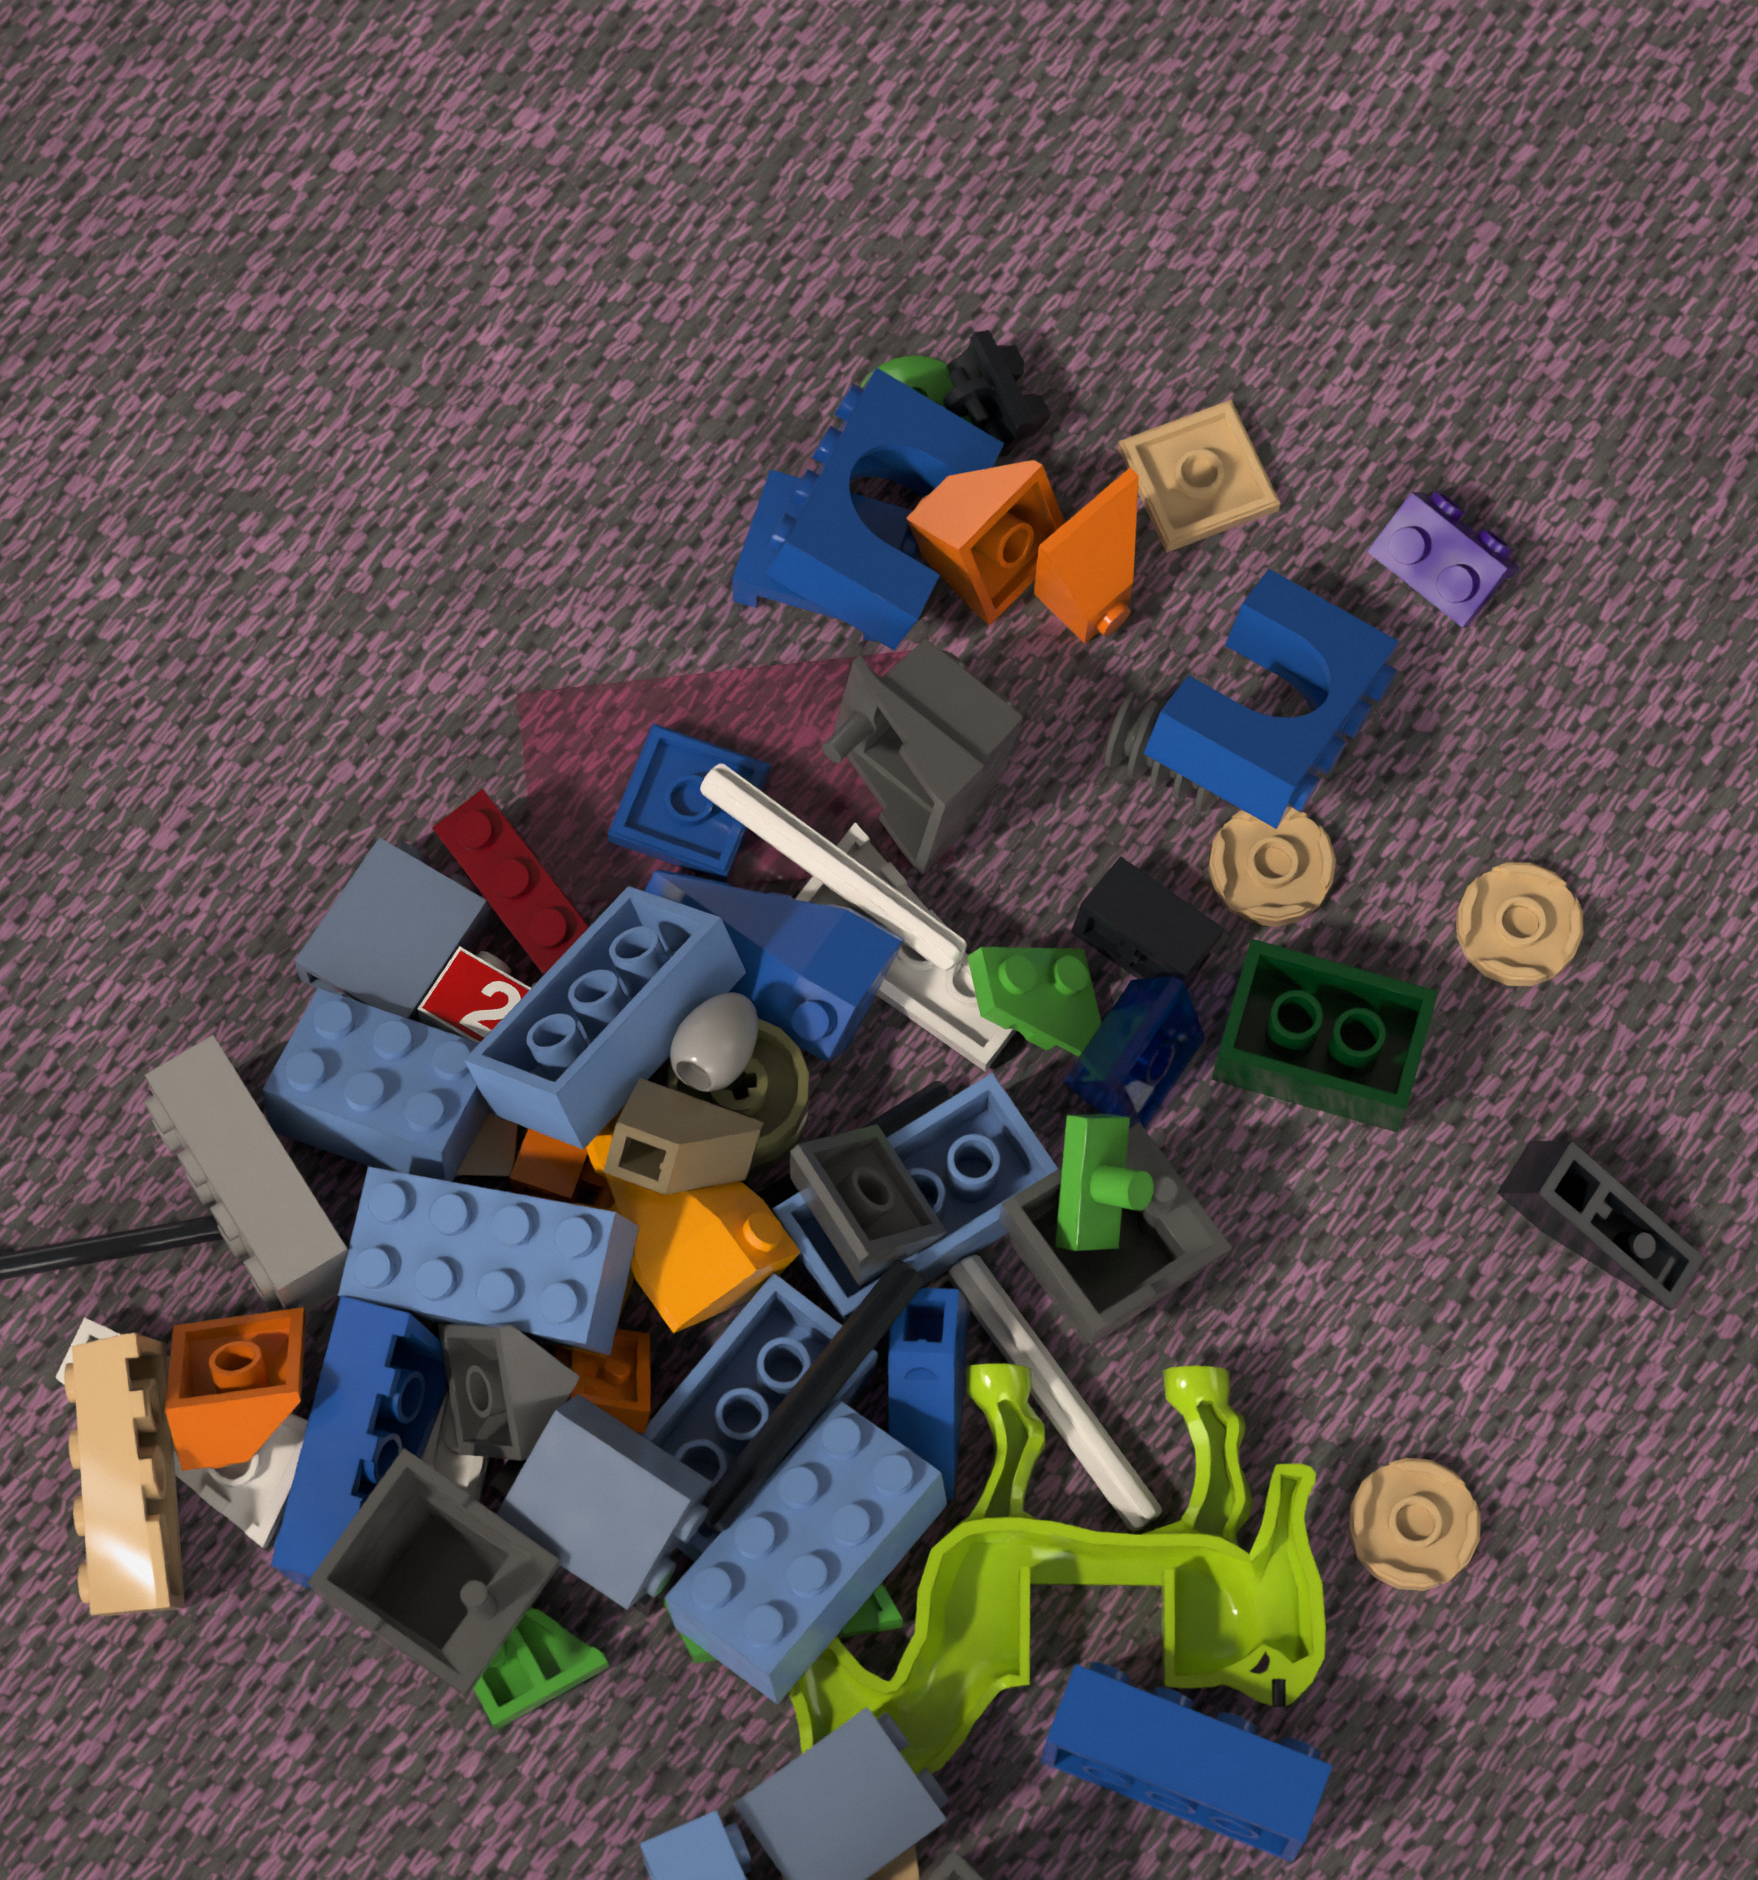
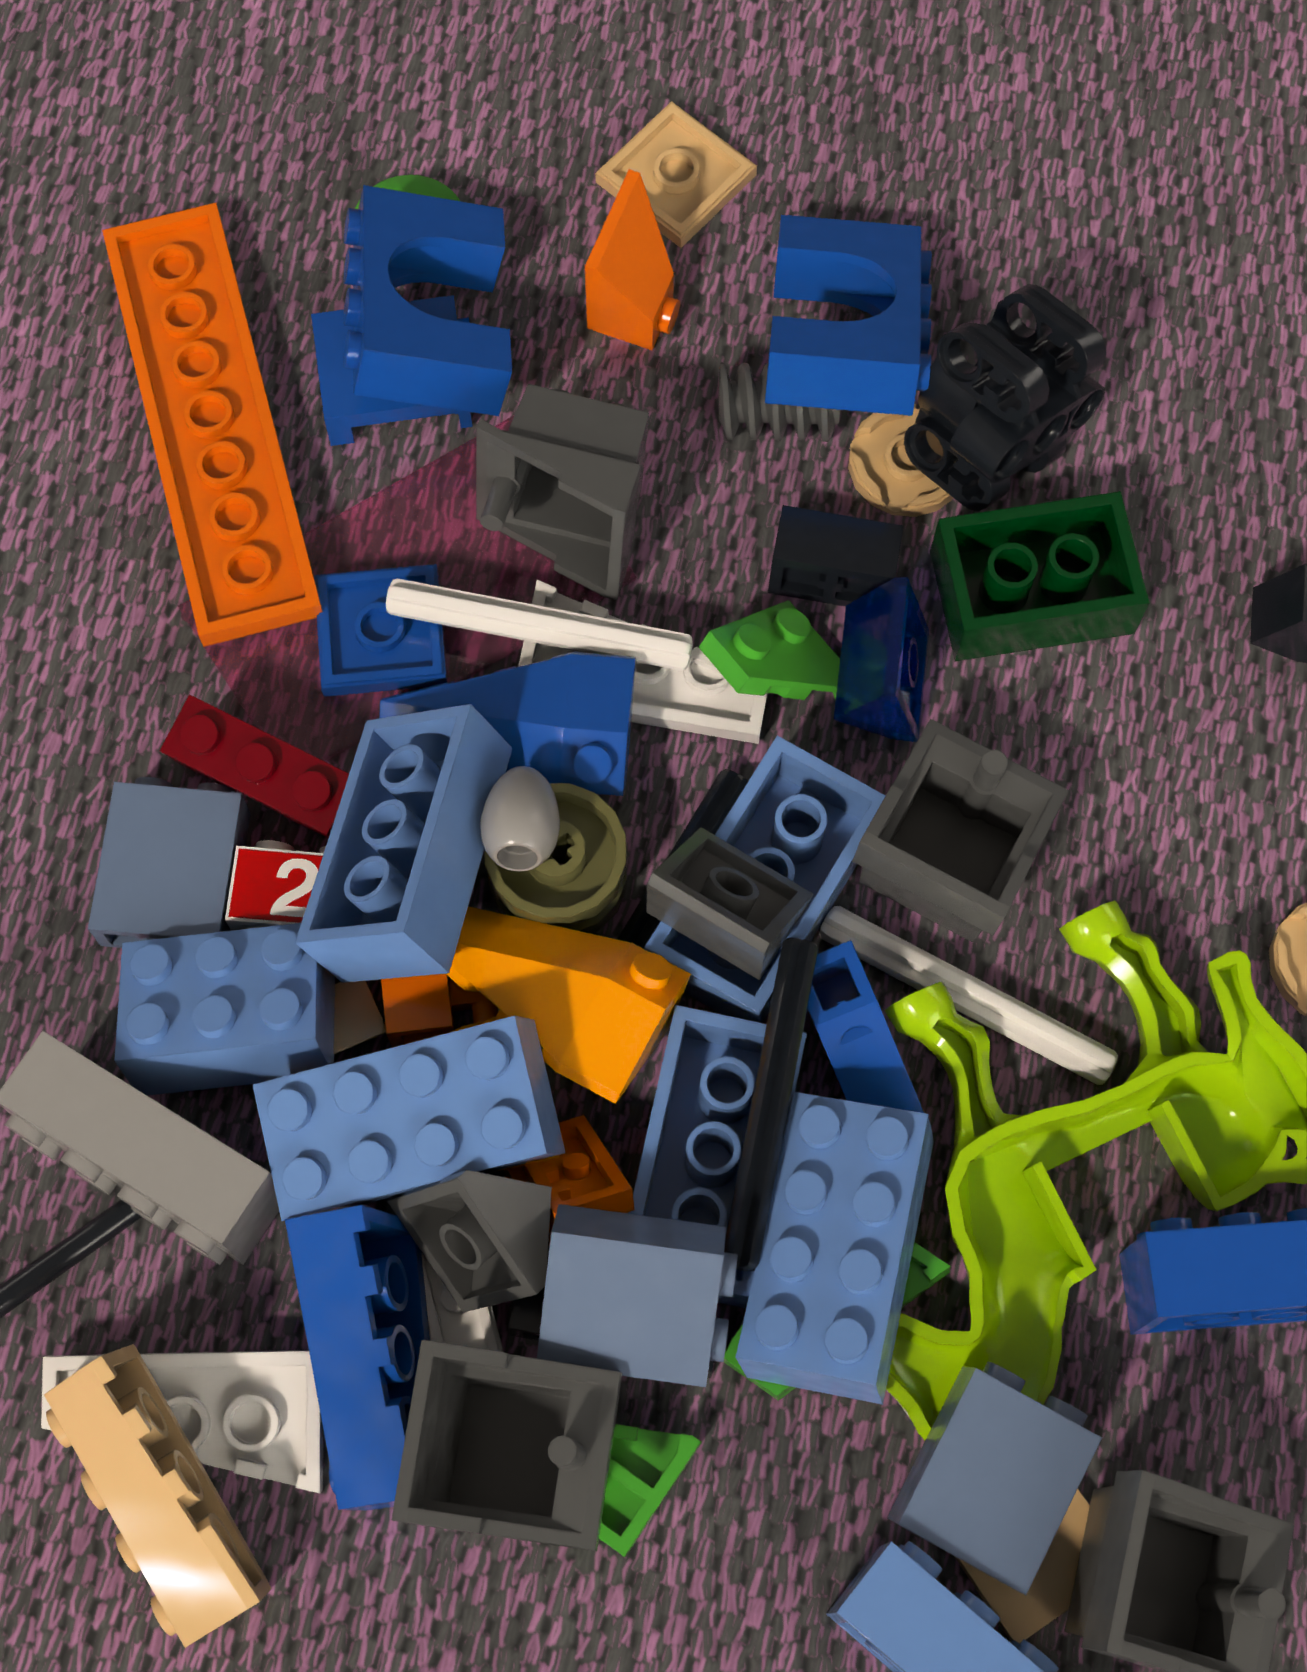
camera: 25 degrees left, 0 degrees up
(233, 1384) = (219, 1354): orange slope -> none
(629, 530) = (211, 426): none -> orange plate
(680, 1141) = (534, 924): dark tan slope -> none
(986, 532) = (528, 282): orange slope -> none
(988, 392) = (465, 173): black hips -> none
(1097, 1182) = (931, 785): bright green tile -> none
(1375, 860) = (1014, 402): none -> black piece
(1443, 555) = (914, 149): bracket -> none
(1507, 940) = (1130, 433): tan tile -> none

